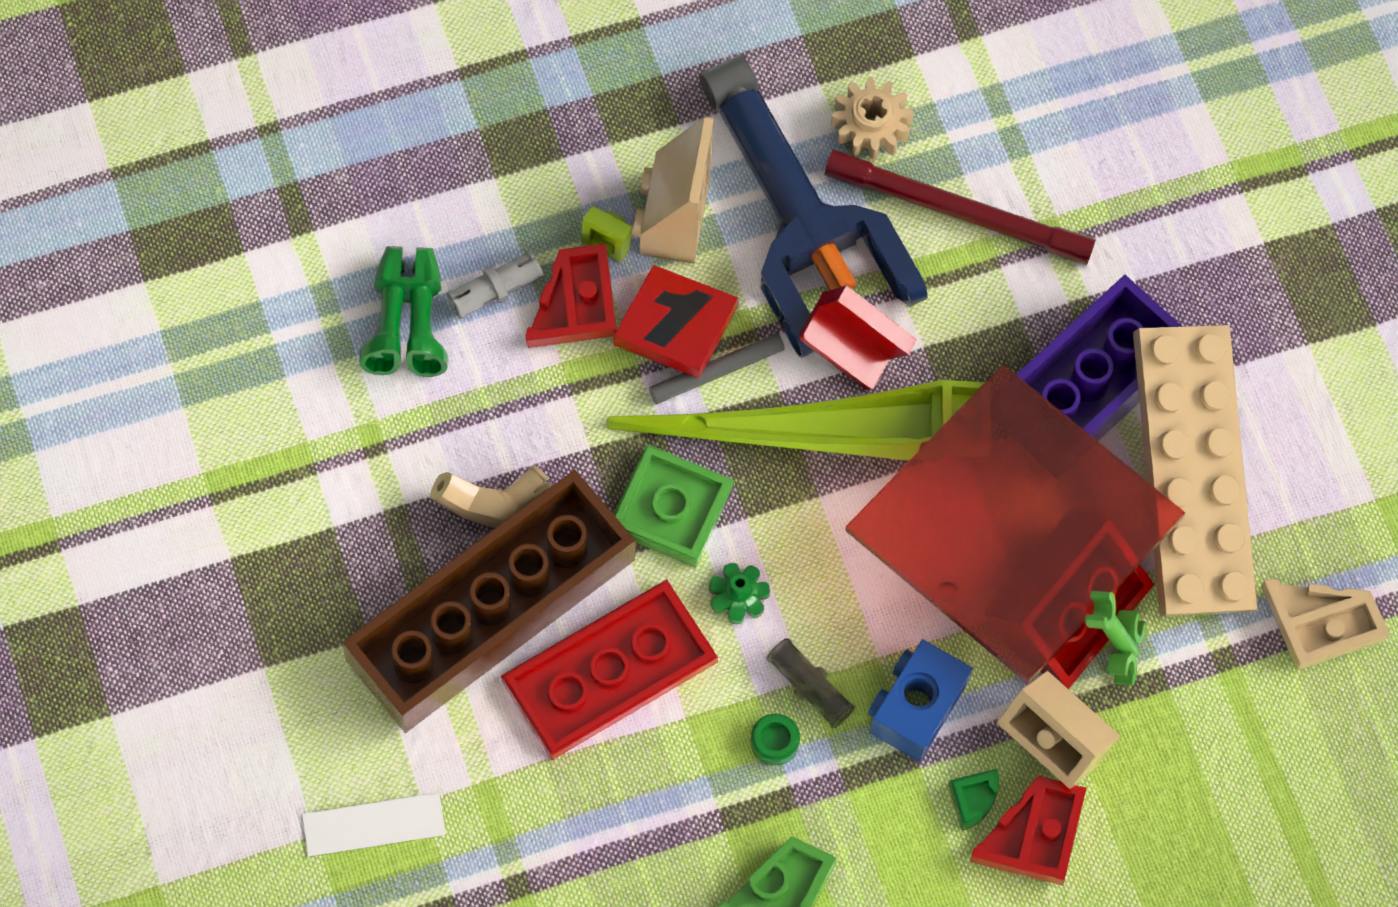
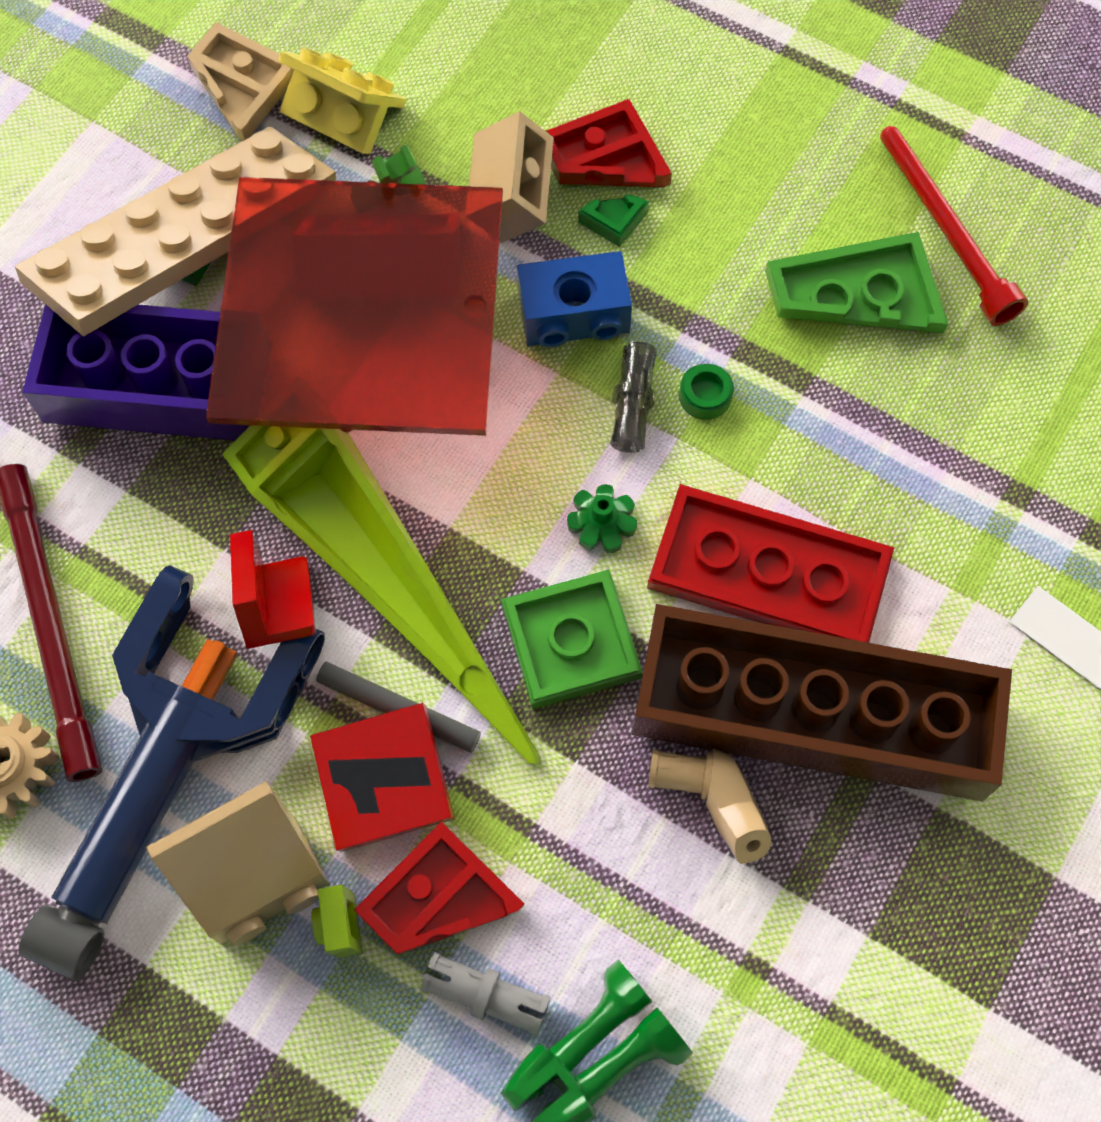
camera: 125 degrees left, 0 degrees up
(1243, 677) = (337, 99): none -> light yellow bracket

